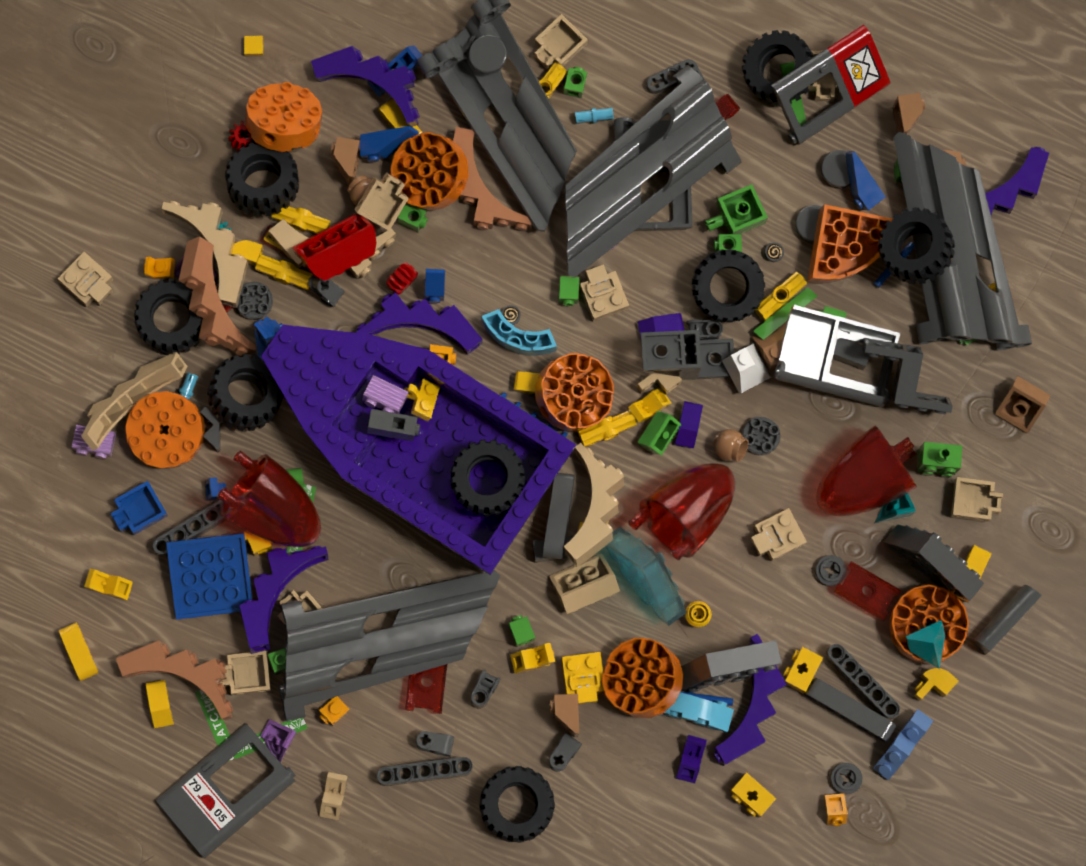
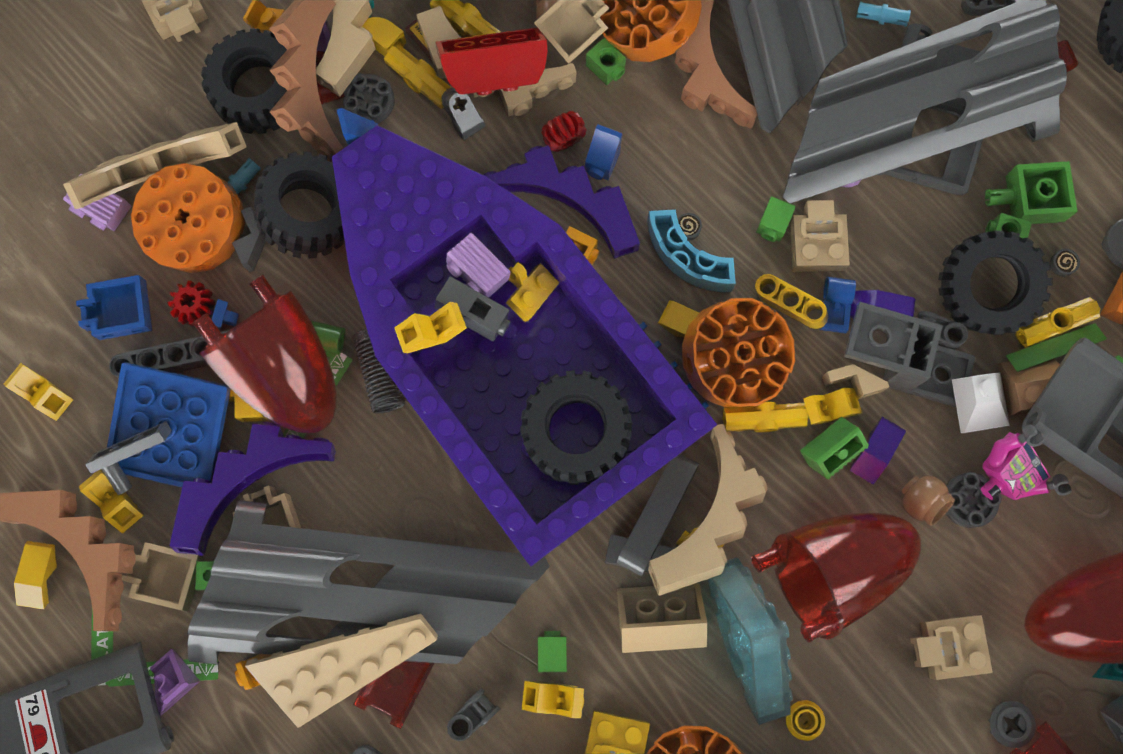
camera: 30 degrees right, 0 degrees up
(181, 607) = (108, 458): none -> dark grey piece
(189, 494) = (194, 293): none -> red gear
(189, 638) = (116, 509): none -> yellow slope
(352, 505) = (381, 403): none -> dark grey piece
(369, 450) = (427, 331): none -> yellow slope
(382, 691) = (331, 669): none -> tan wing
(589, 344) = (785, 290): none -> yellow beam
(629, 335) = (838, 297): none -> blue plate
(783, 406) = (1017, 469): none -> torso

